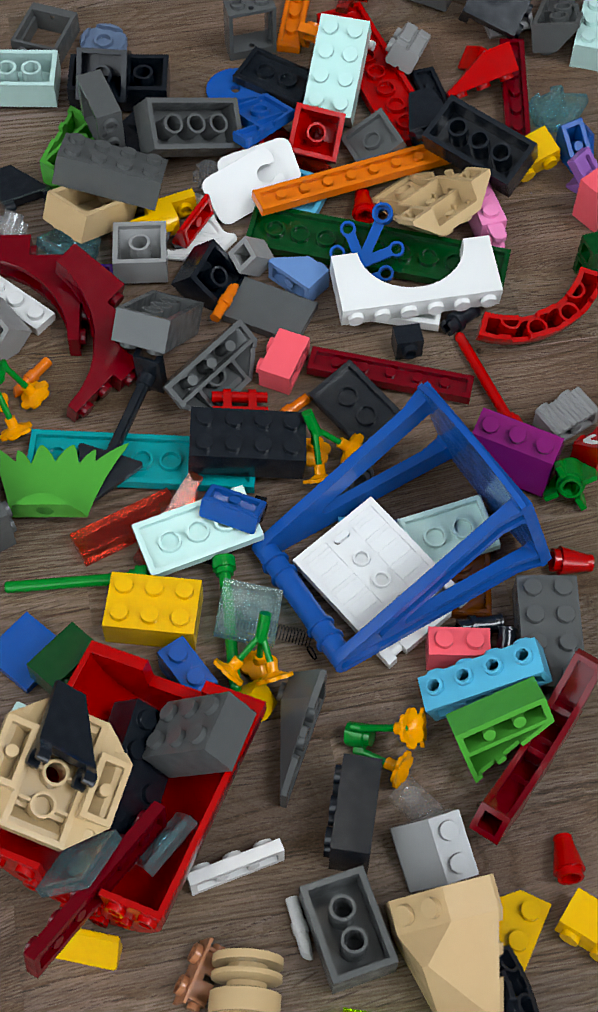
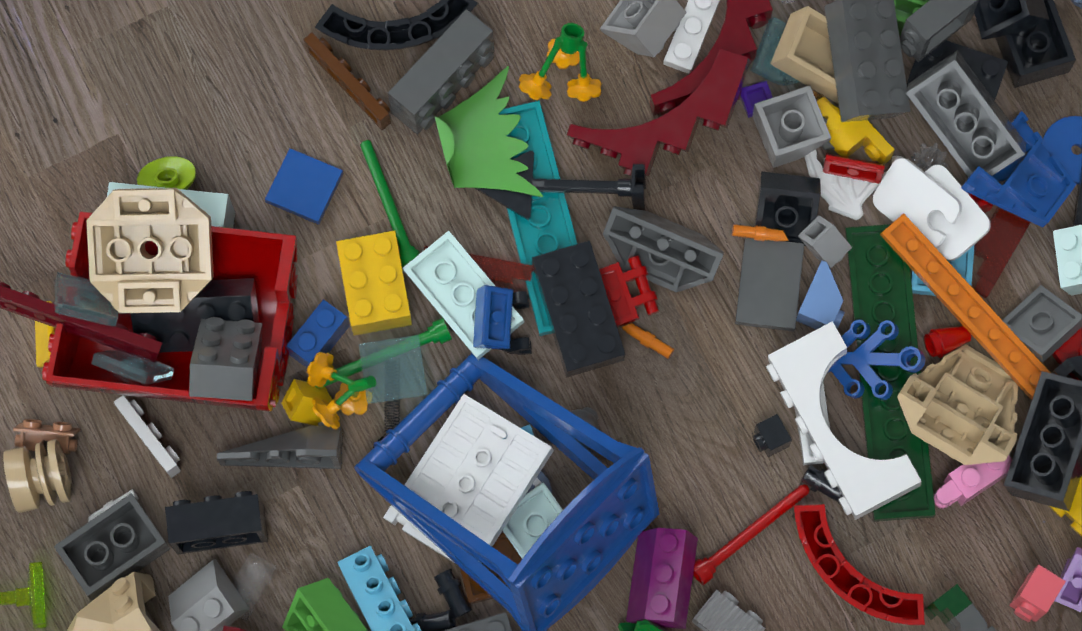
camera: 75 degrees right, 15 degrees up
(33, 375) = (610, 78): orange piece -> none
(59, 657) = (288, 217): dark green brick -> none
(67, 735) = (179, 244): black flag -> none
(115, 530) = (450, 214): clear red piece -> none
(156, 322) = (688, 174): dark grey brick -> none
(283, 361) = (704, 315): coral brick -> none
(316, 132) = (1023, 257): red slope -> none
(318, 450) = (609, 381): light orange plant -> none
(353, 402) = (670, 406): black tile -> none
(393, 374) = (725, 430): dark red plate -> none
(411, 731) = (297, 547): light orange plant -> none
(449, 644) = (417, 577): coral brick -> none

